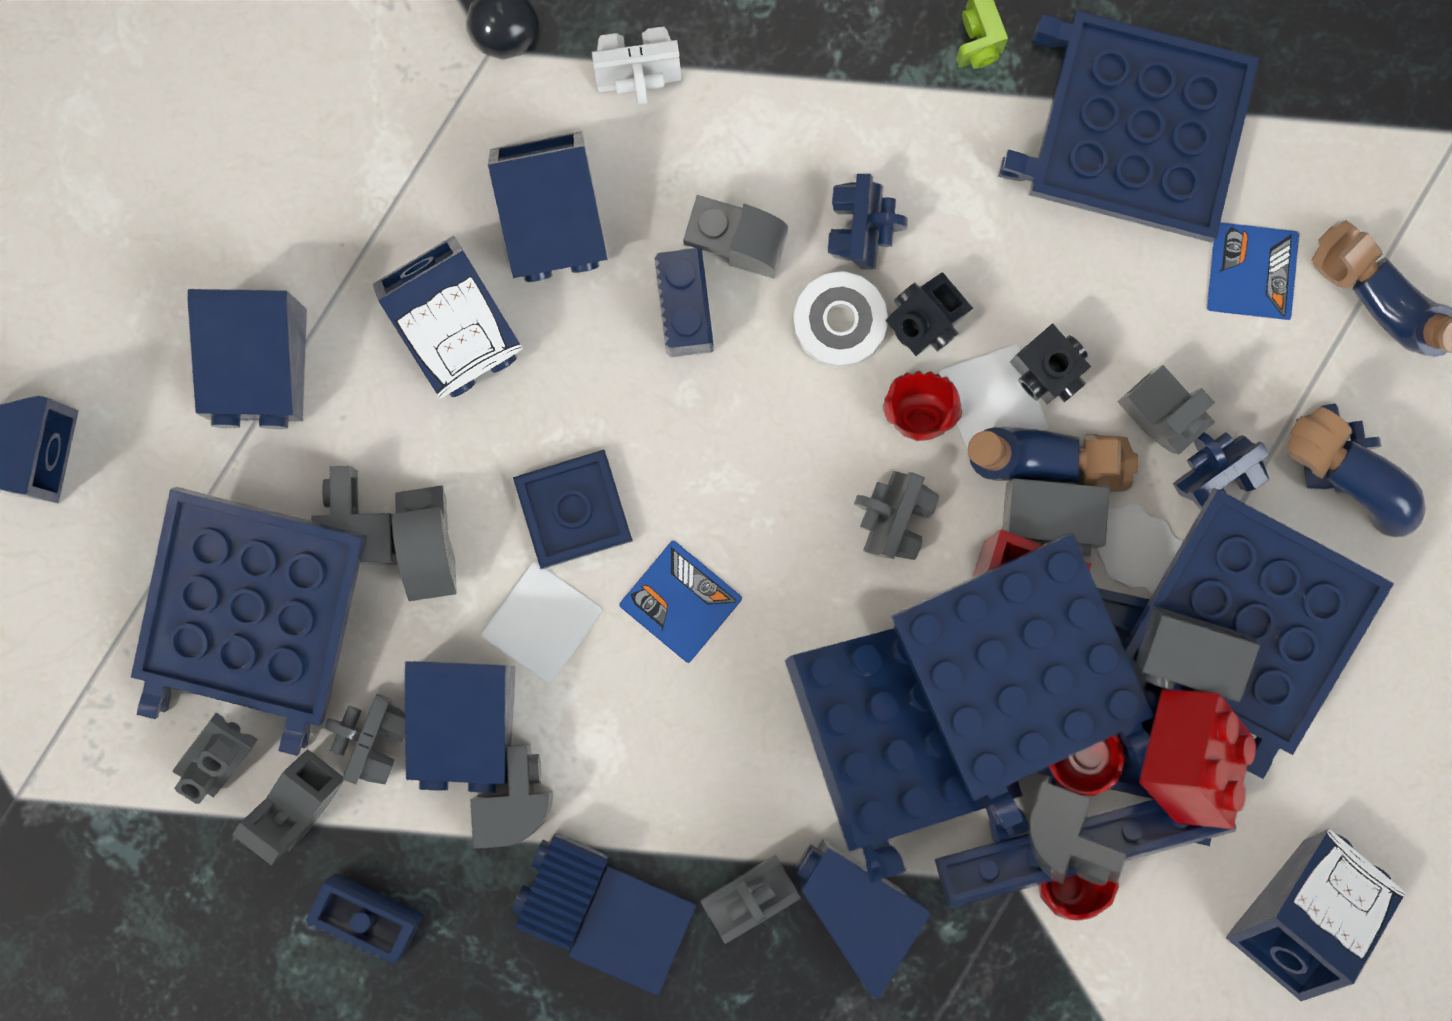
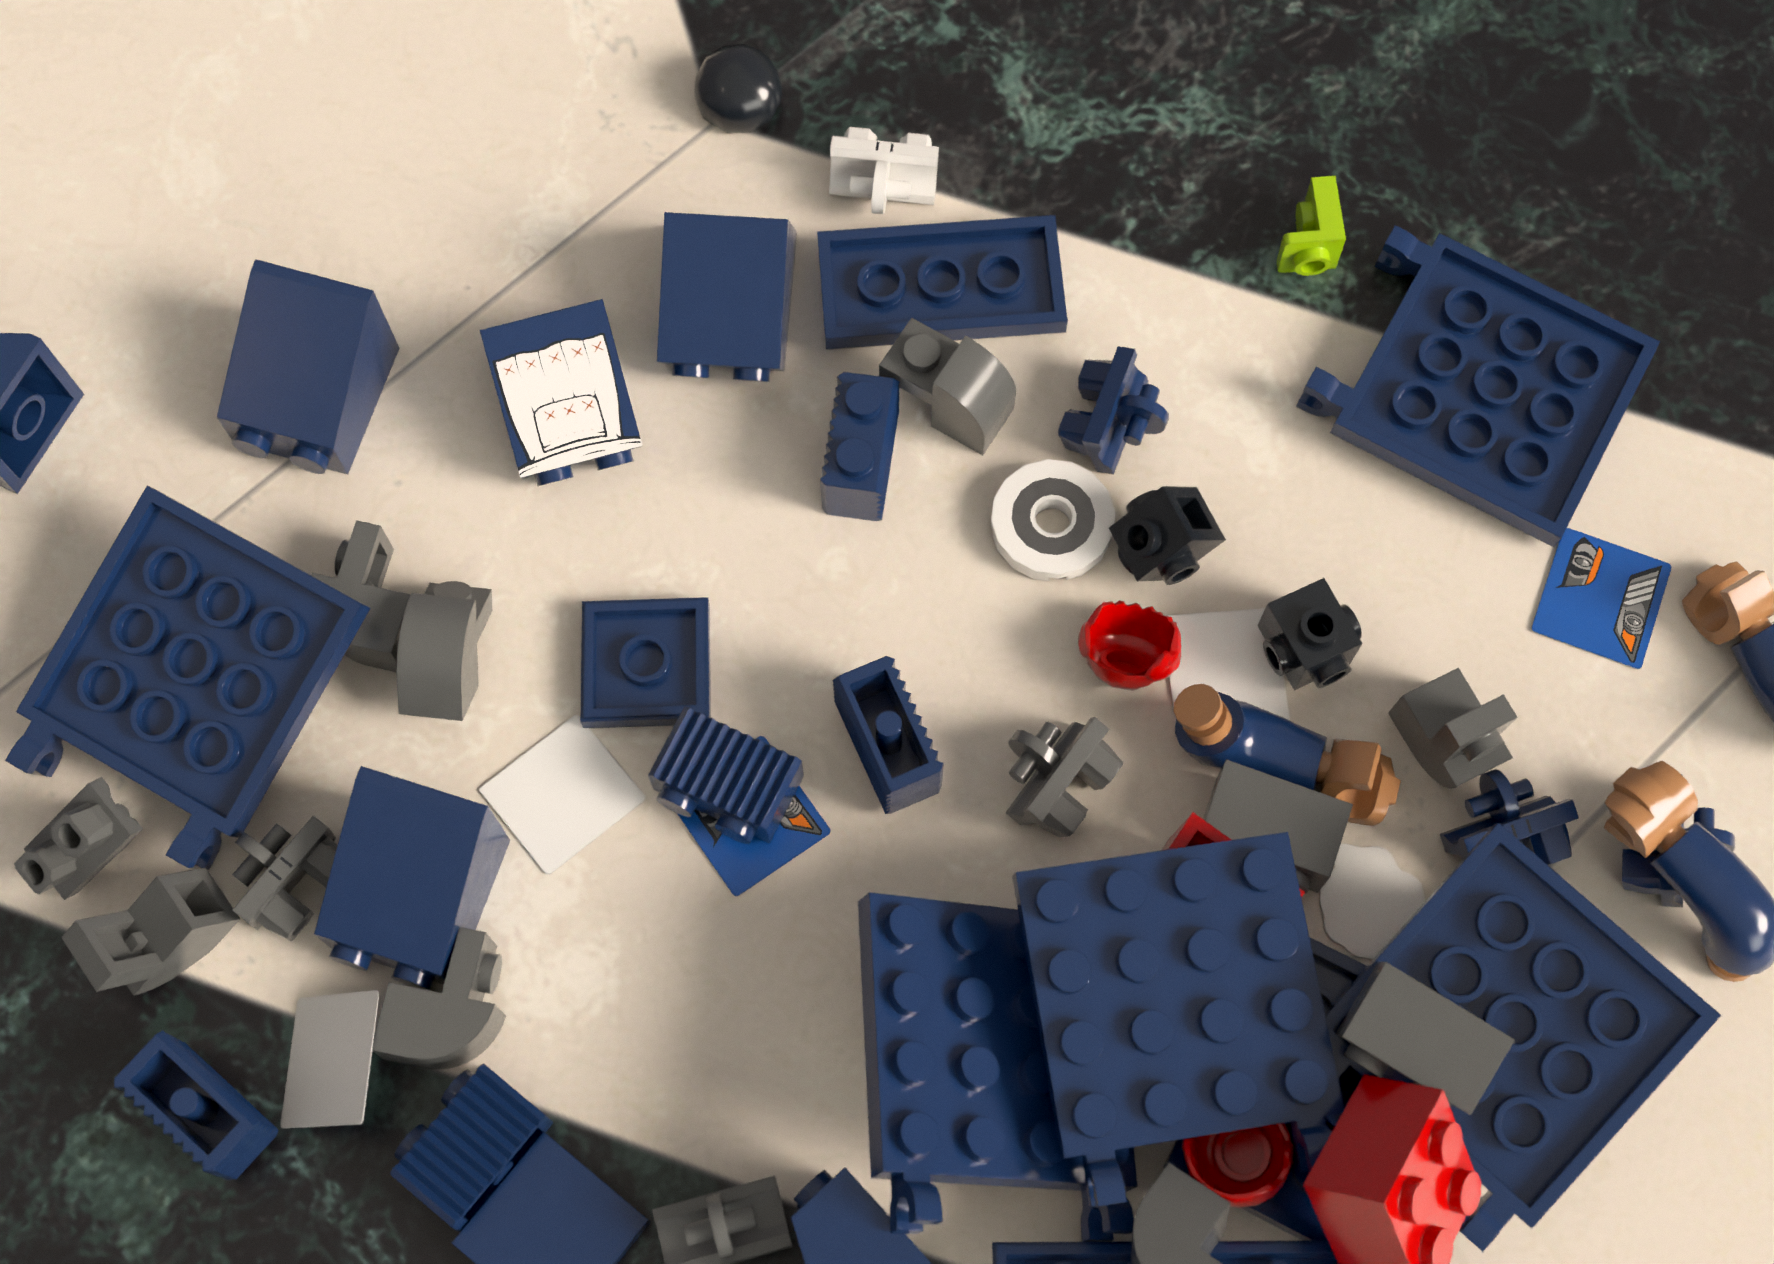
camera: 20 degrees right, 15 degrees down
(444, 859) = (330, 1060): none -> white sticker
(658, 583) = (725, 777): none -> dark blue brick
(706, 148) = (949, 276): none -> dark blue plate
(766, 523) = (888, 734): none -> dark blue brick

